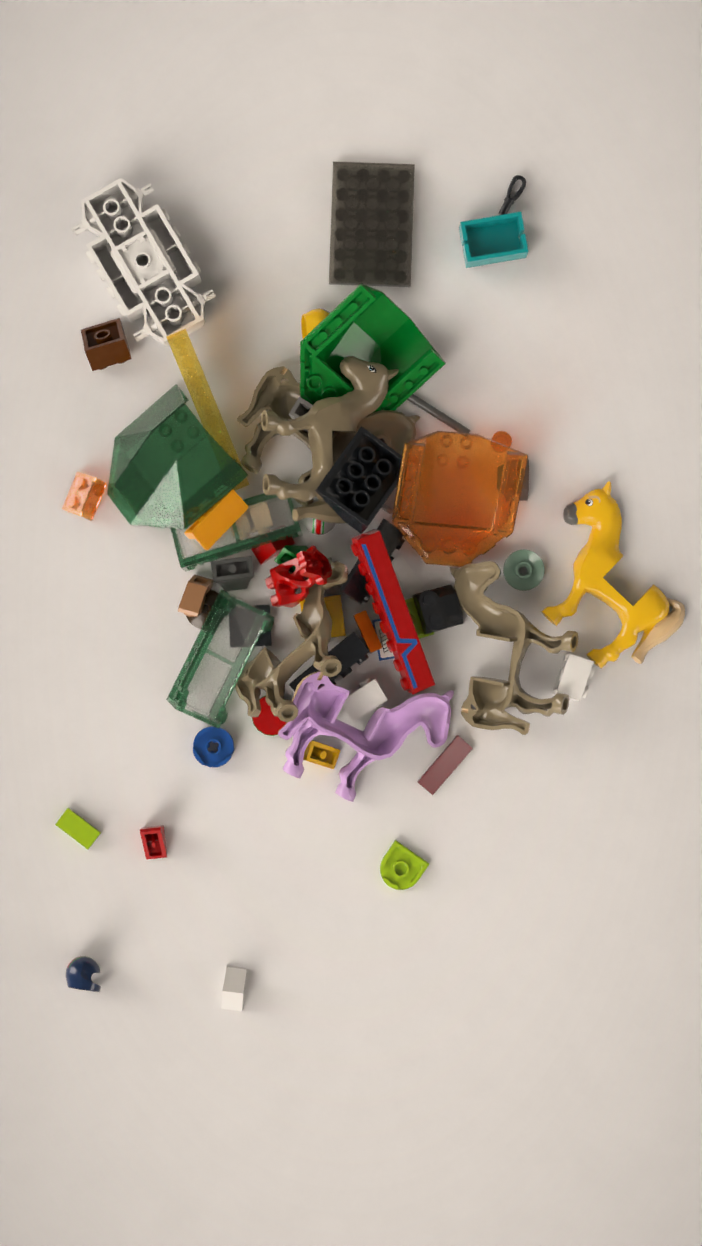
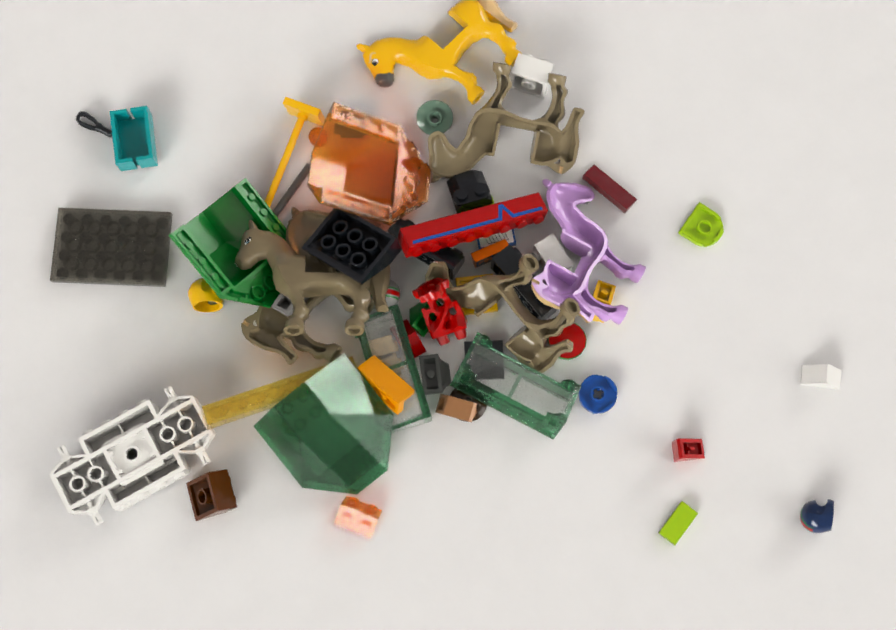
camera: 90 degrees left, 10 degrees down
(523, 423) = (303, 113): none -> yellow tile

